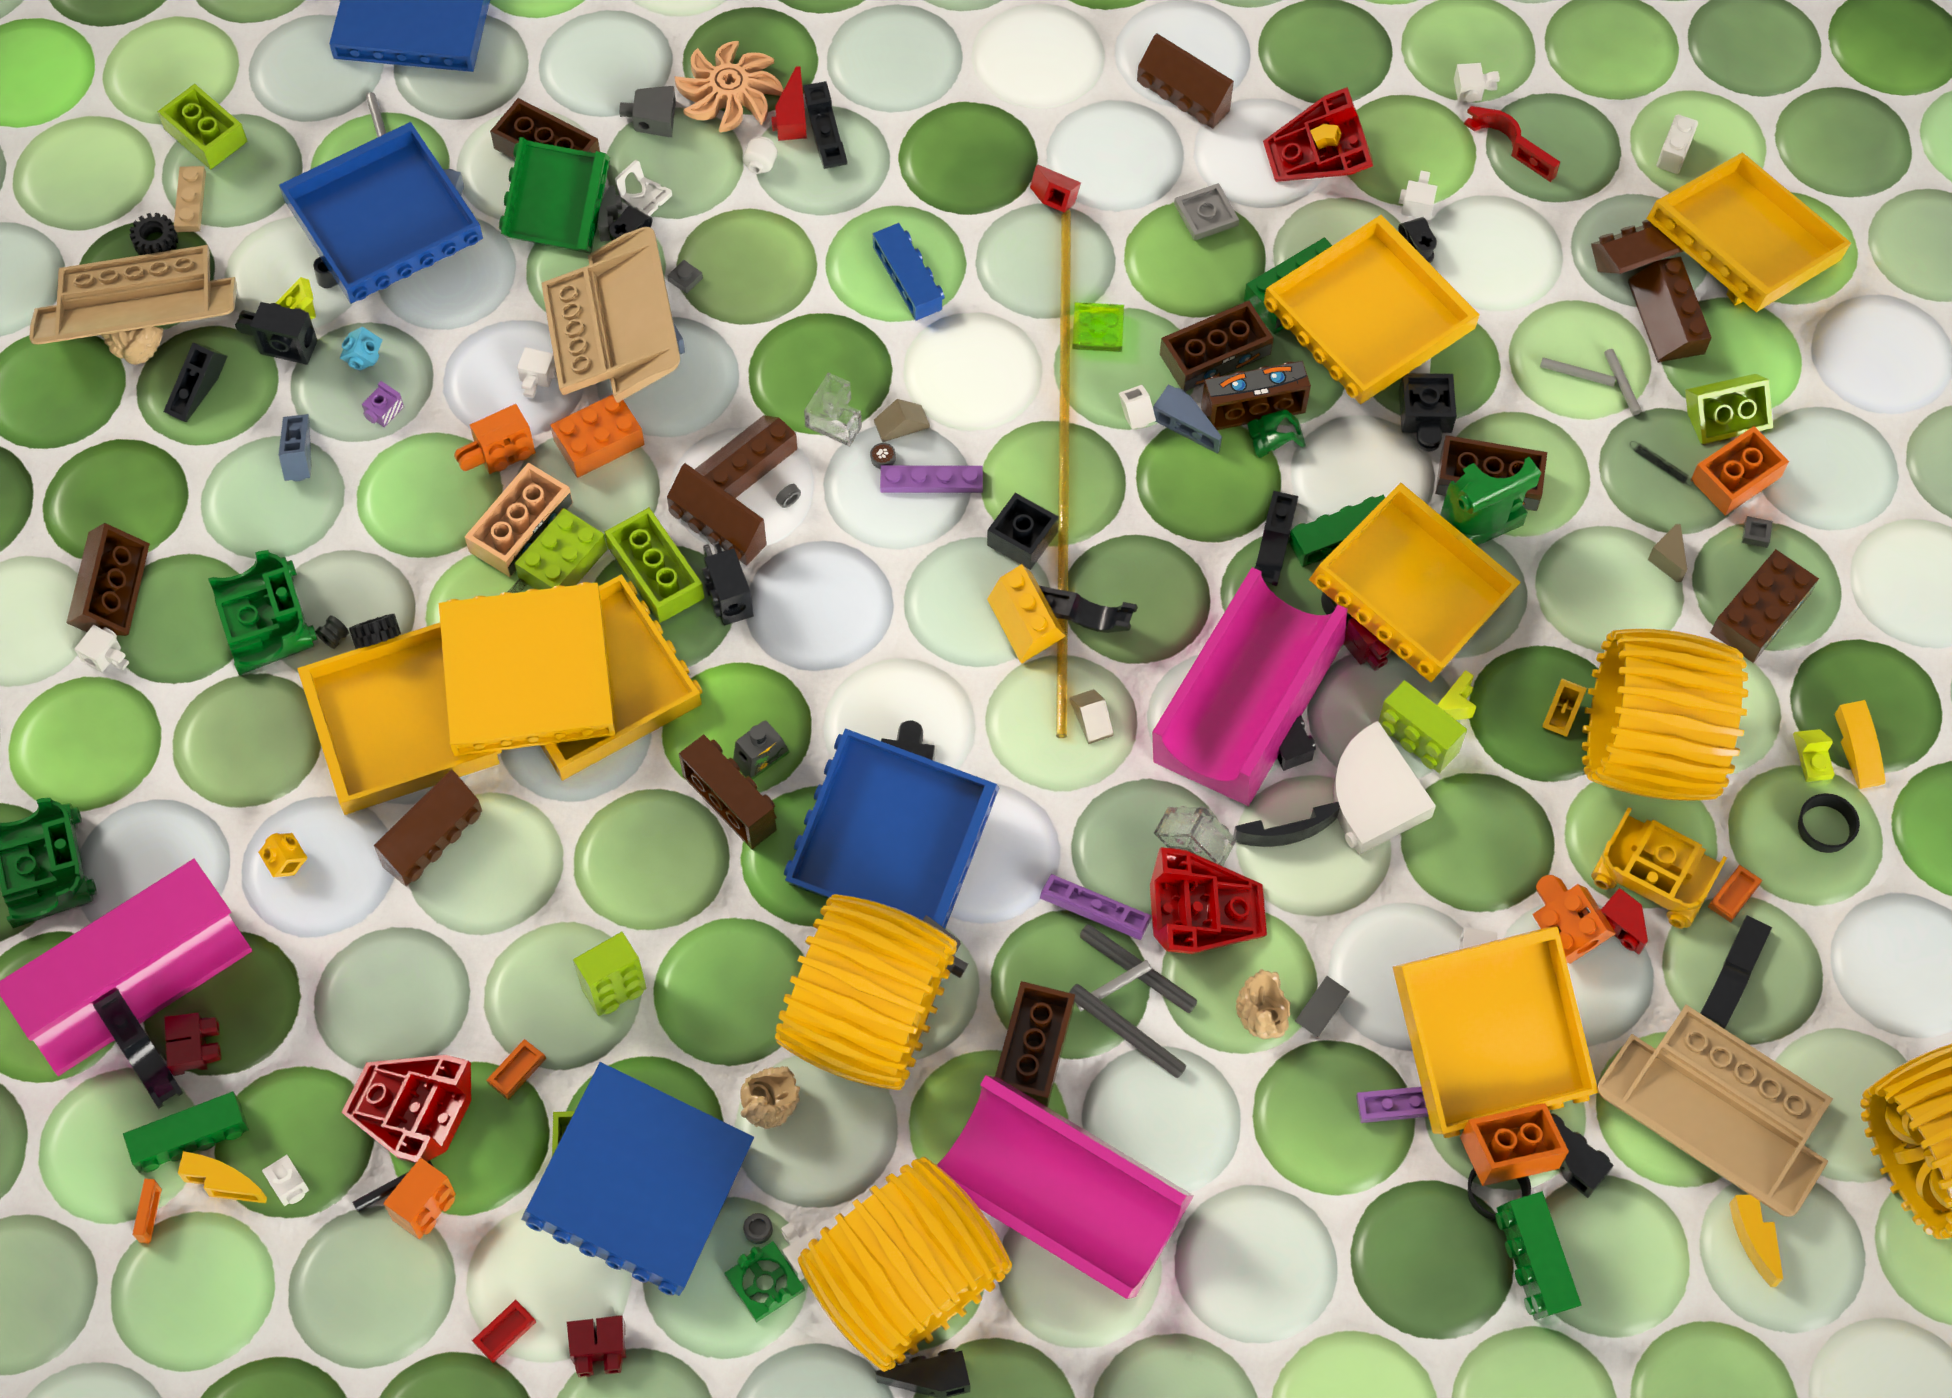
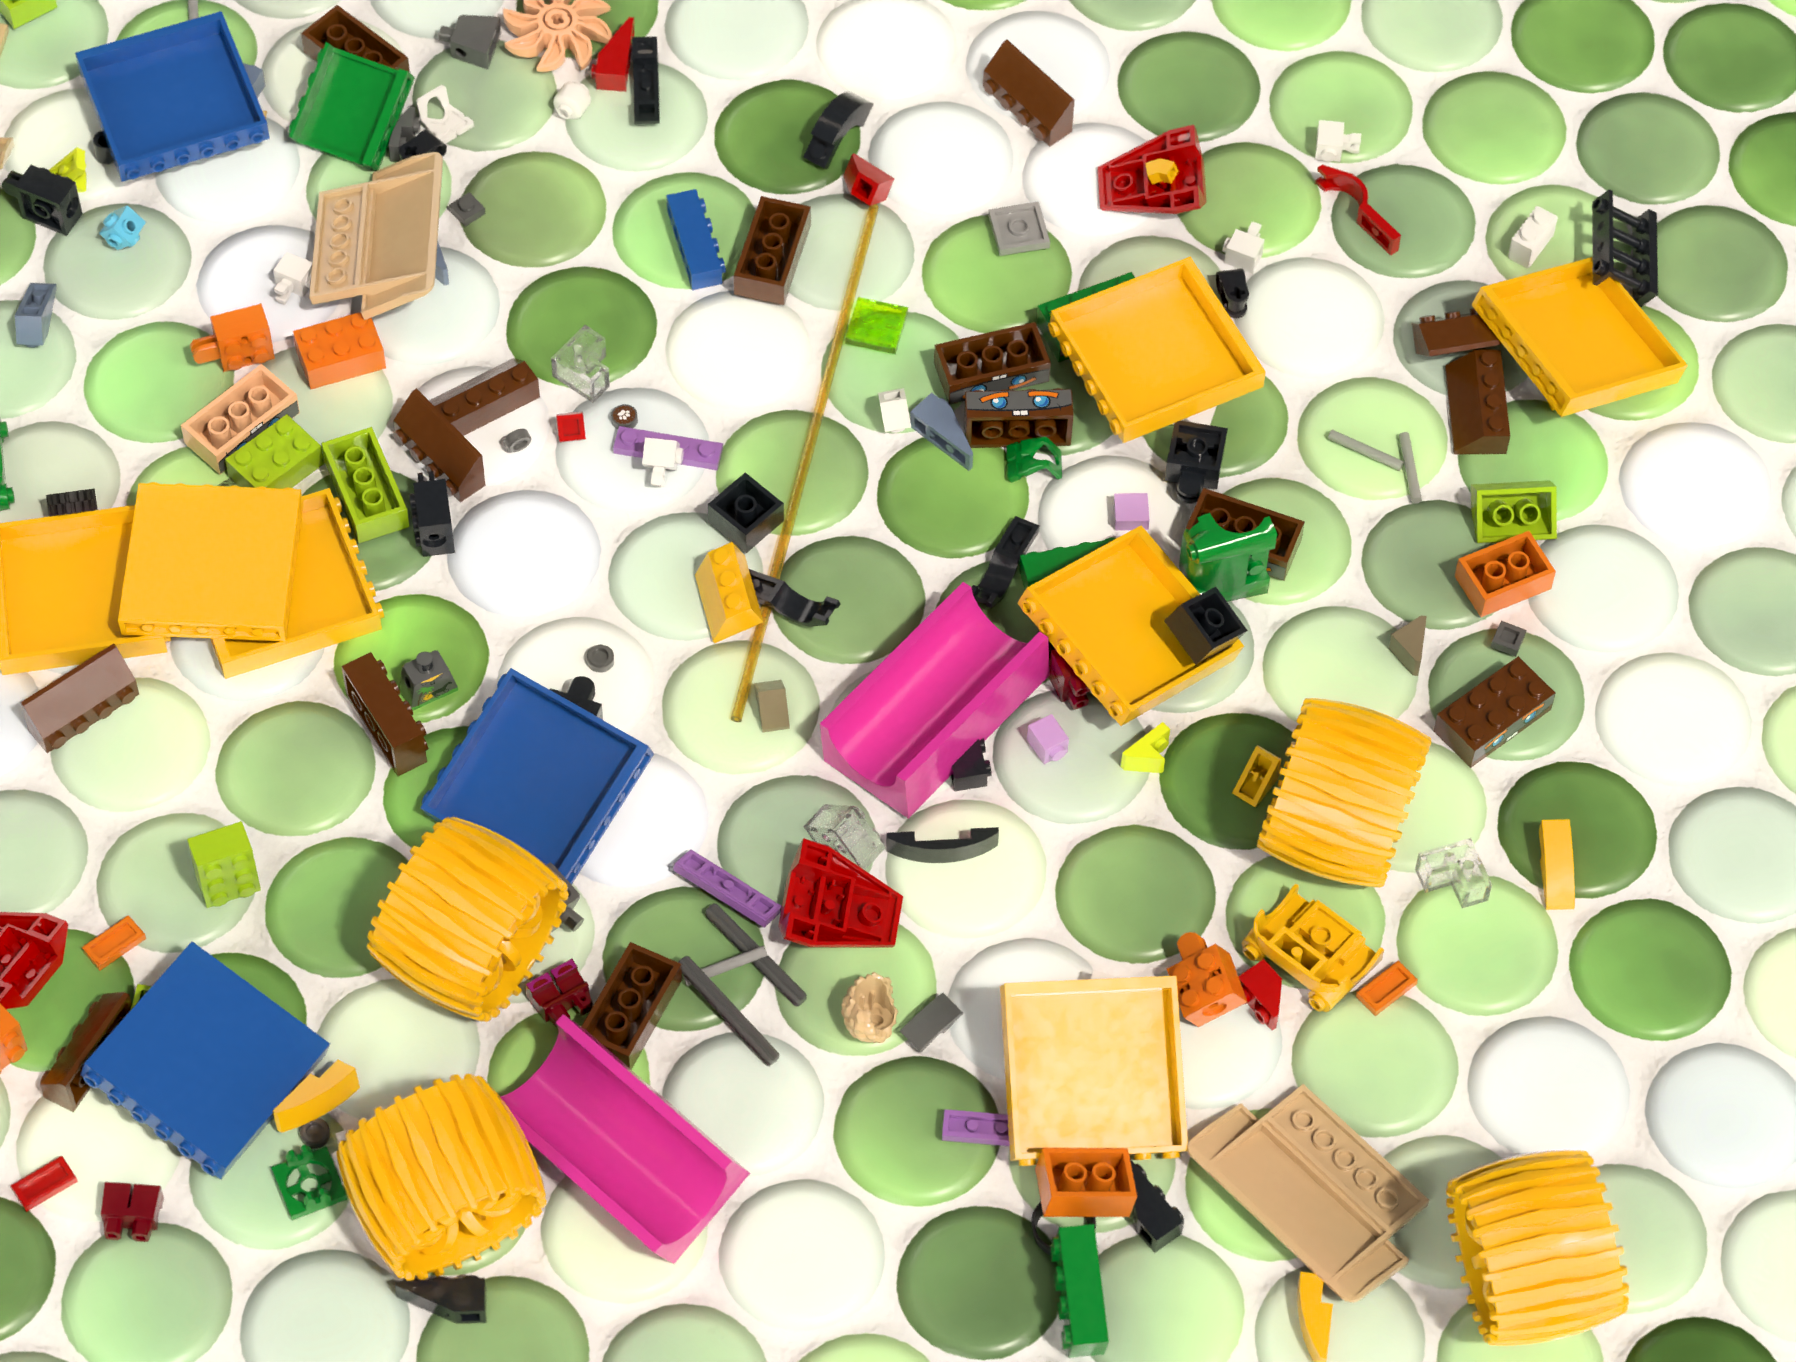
camera: 10 degrees right, 5 degrees down
(332, 632) = (30, 497): pearl dark grey wheel -> none
(382, 405) = (131, 286): medium lavender brick -> none
(519, 1179) = (64, 1081): none -> reddish brown slope
(753, 1192) = (316, 1096): none -> yellow slope
(769, 1097) = (354, 1010): tan hair -> none
(835, 473) = (571, 426): none -> red plate
(900, 420) = (651, 384): dark tan slope -> none
(917, 697) = (600, 658): none -> dark grey tile
(930, 488) = (661, 455): none -> white brick
(960, 1041) = (559, 992): none -> dark red hips
(984, 270) = (772, 250): none -> reddish brown brick
(1017, 131) = (833, 124): none -> black arch
(1360, 705) = (1048, 739): none -> lavender brick
(1377, 791) = (1042, 826): white brick -> none
(1379, 468) = (1131, 511): none -> lavender piece
(1422, 727) = (1102, 769): lime brick -> none
(1487, 571) = (1205, 625): none -> black brick
(1662, 463) = (1443, 565): black piece -> none
(1736, 971) = (1364, 1061): black piece -> none
(1776, 764) = (1457, 866): none -> clear brick
(1779, 137) = (1643, 243): none -> black fence
(1814, 754) = (1507, 868): neon yellow slope -> none
(1837, 803) = (1505, 913): black tyre -> none

